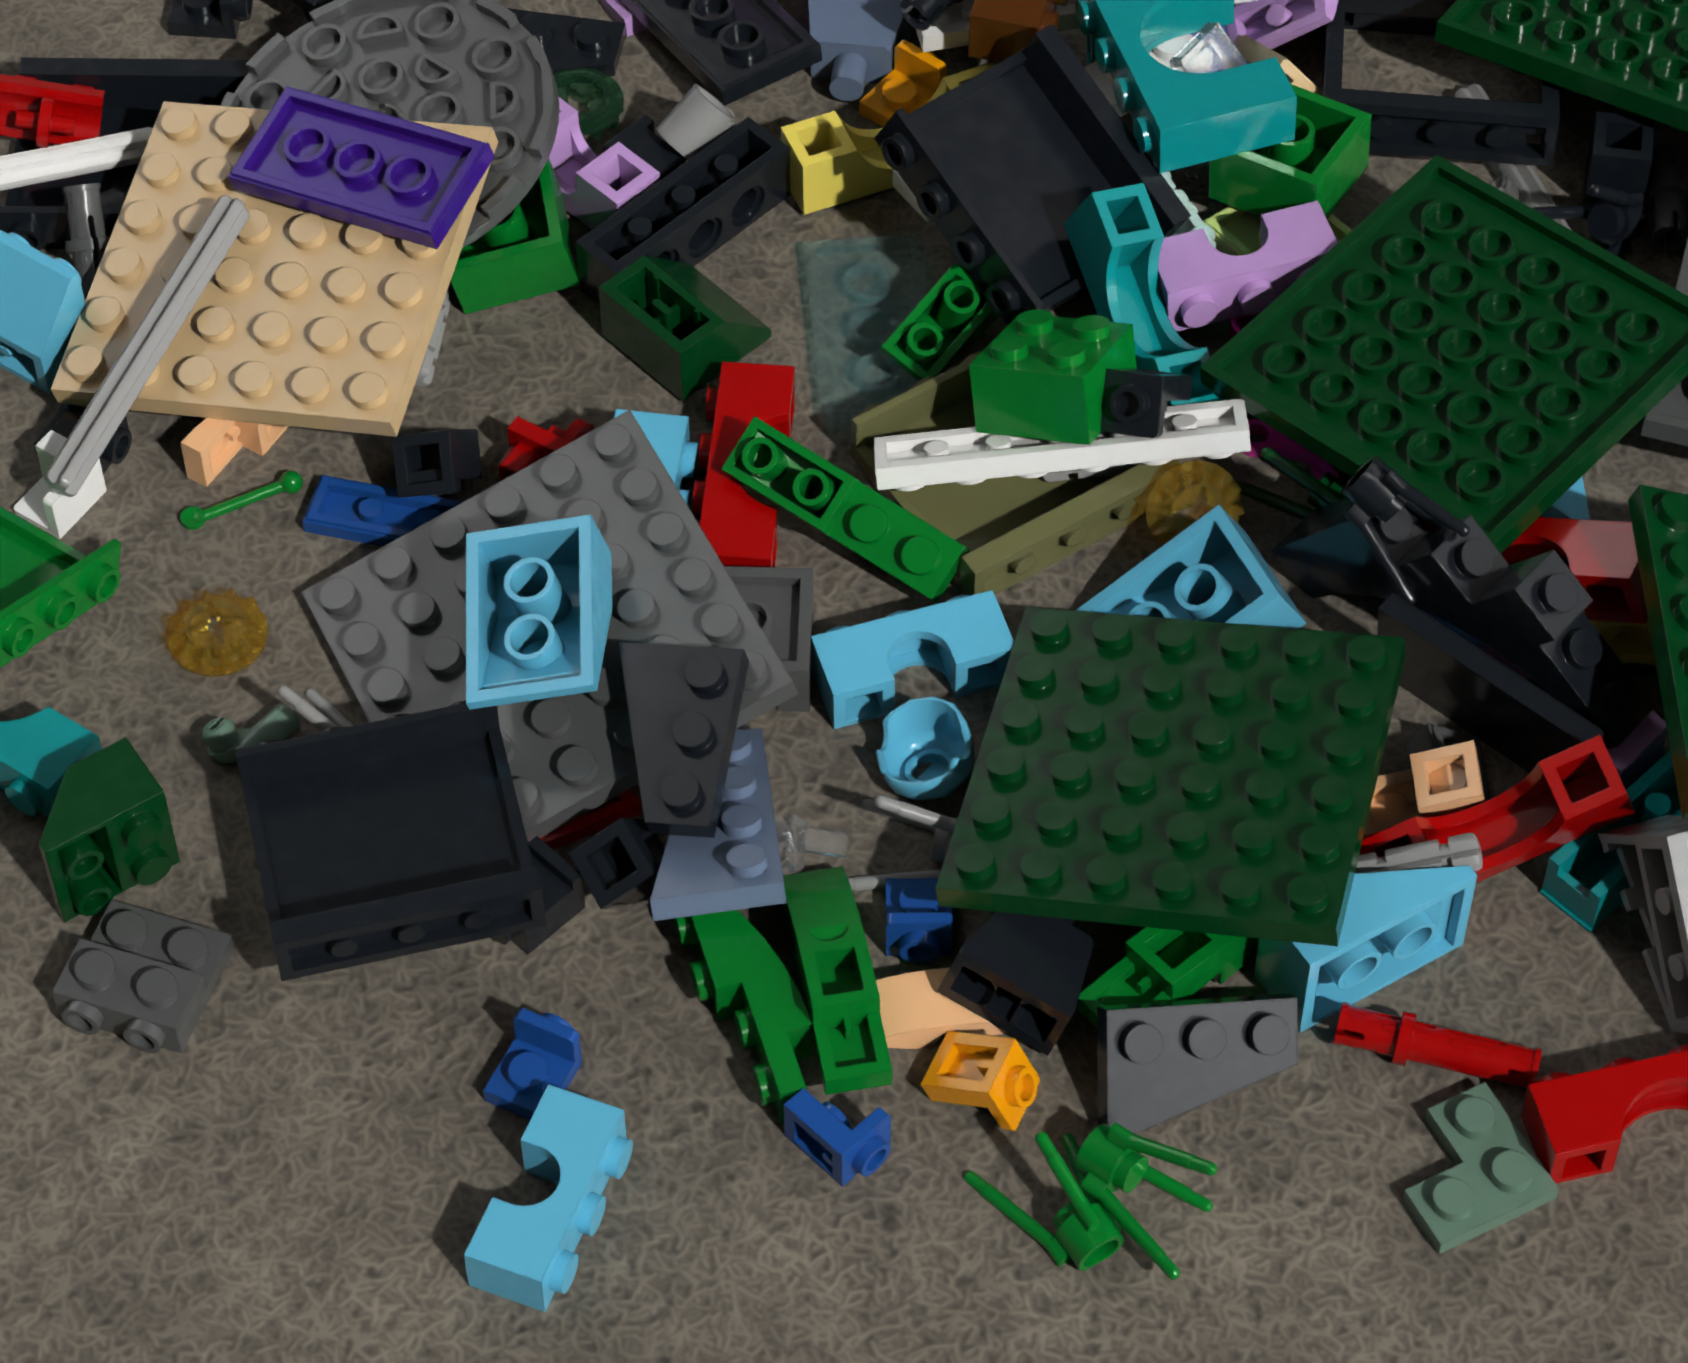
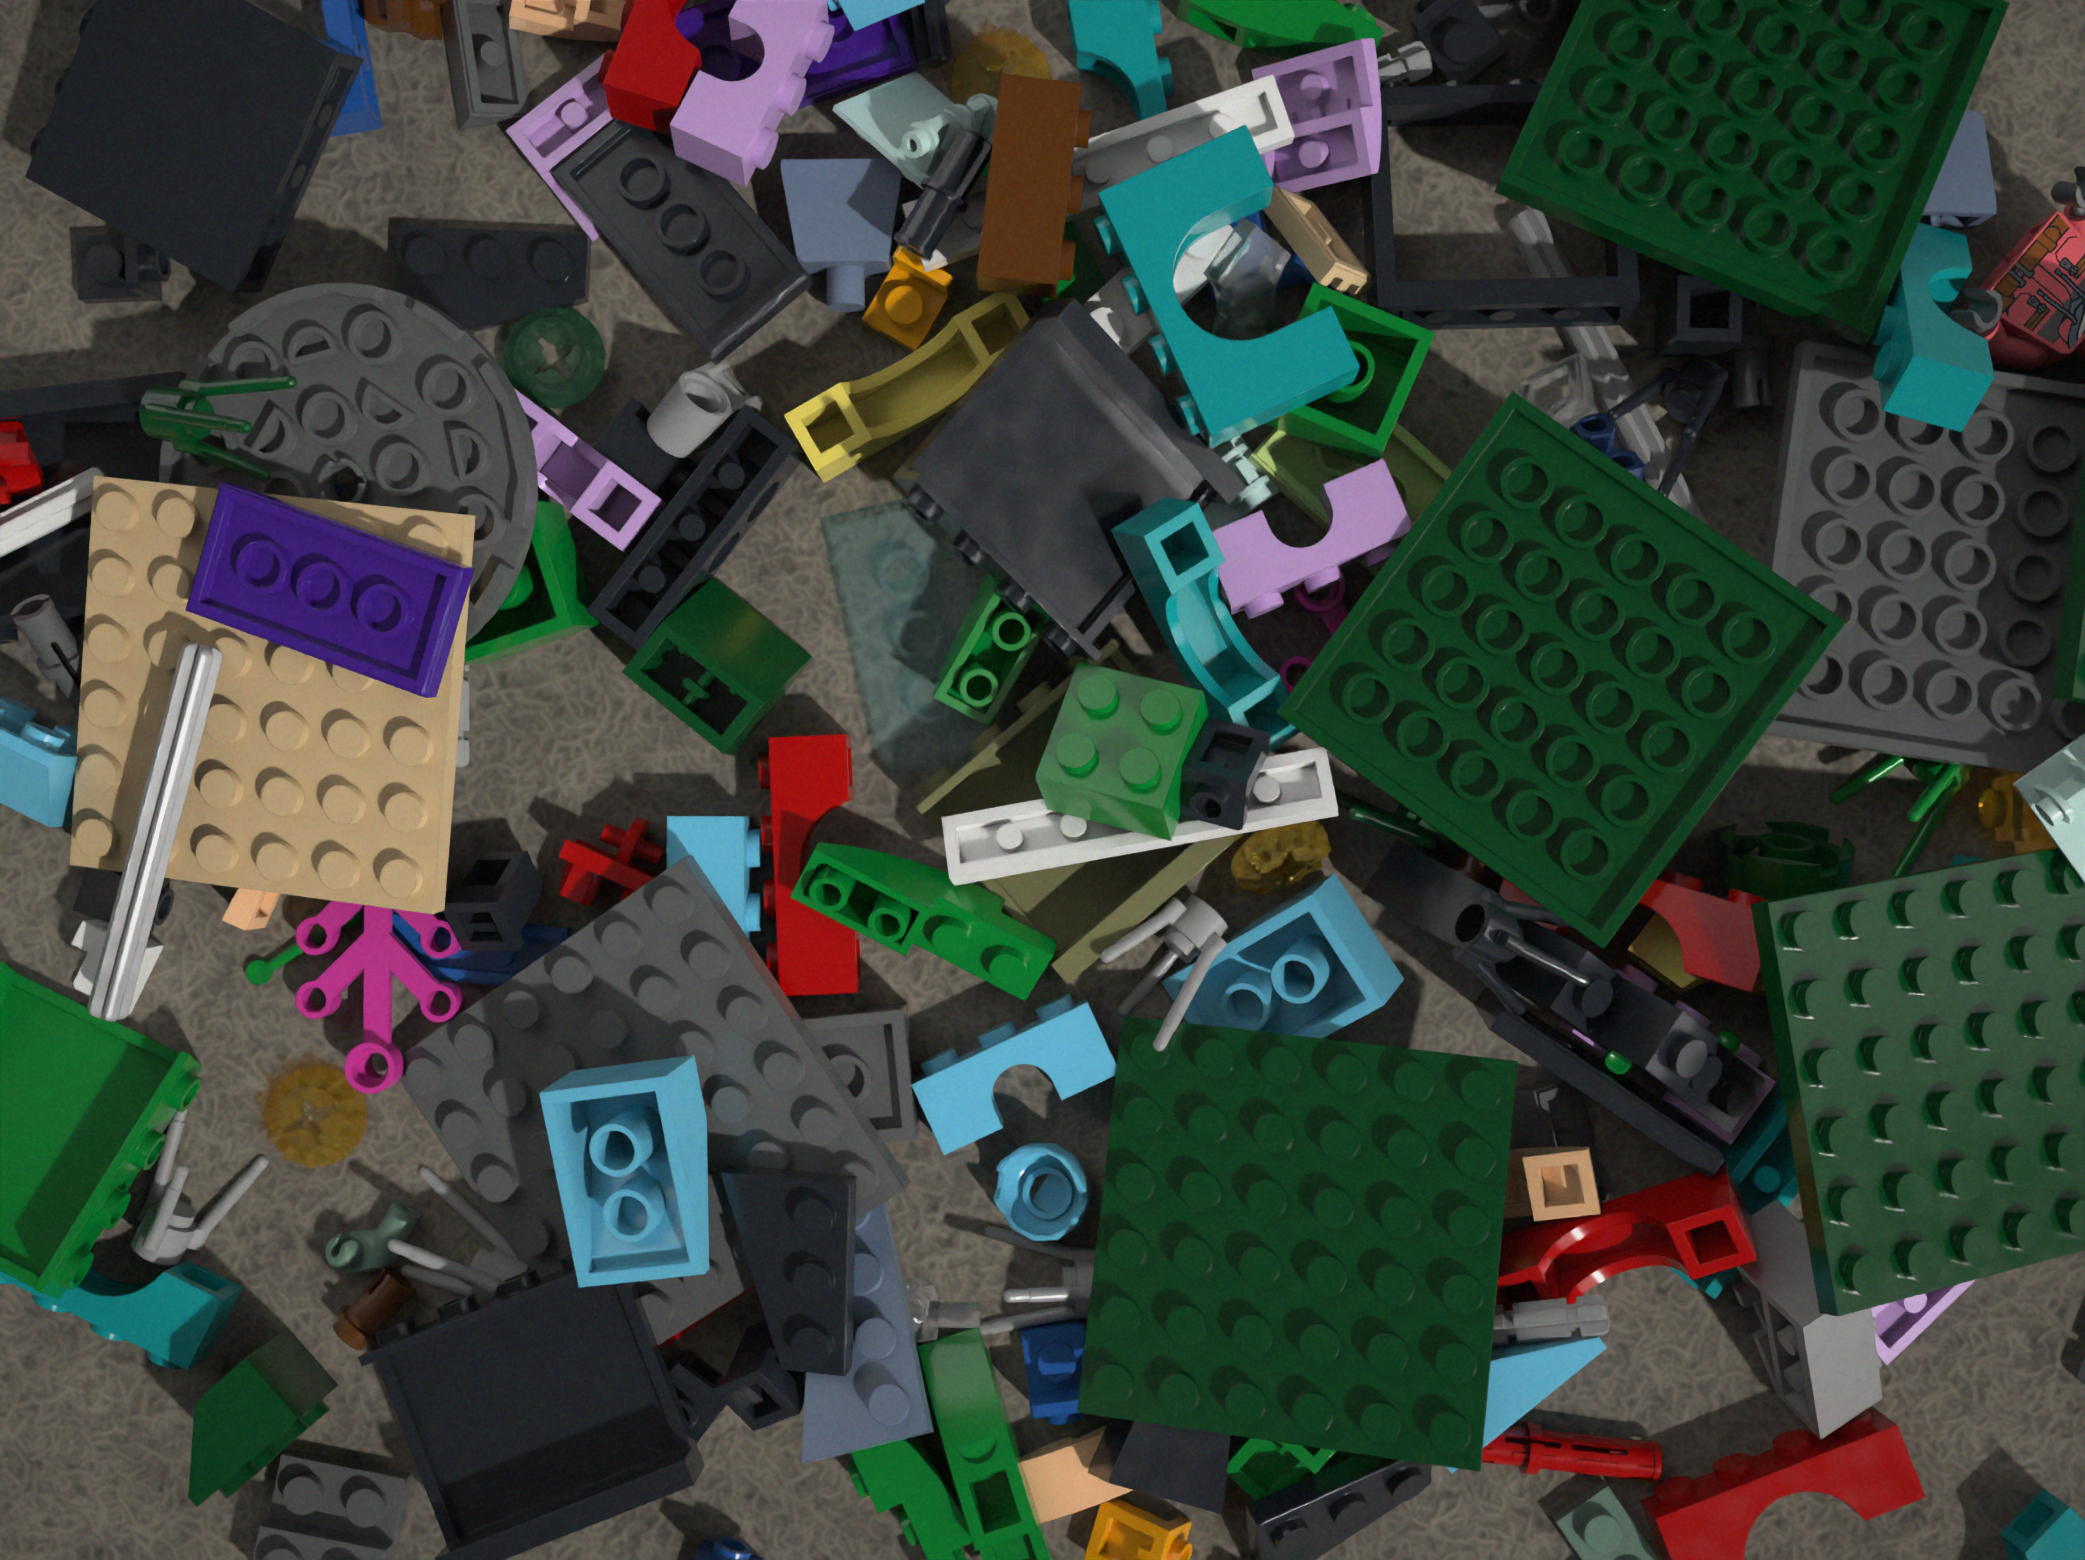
camera: 10 degrees left, 35 degrees up
(60, 691) = (169, 1223): none -> light grey plant
(220, 797) = (373, 1308): none -> reddish brown pin
(259, 57) = (188, 417): none -> dark green plant
(311, 501) = (378, 955): none -> dark pink plant
(1095, 565) = (1191, 932): none -> light grey plant

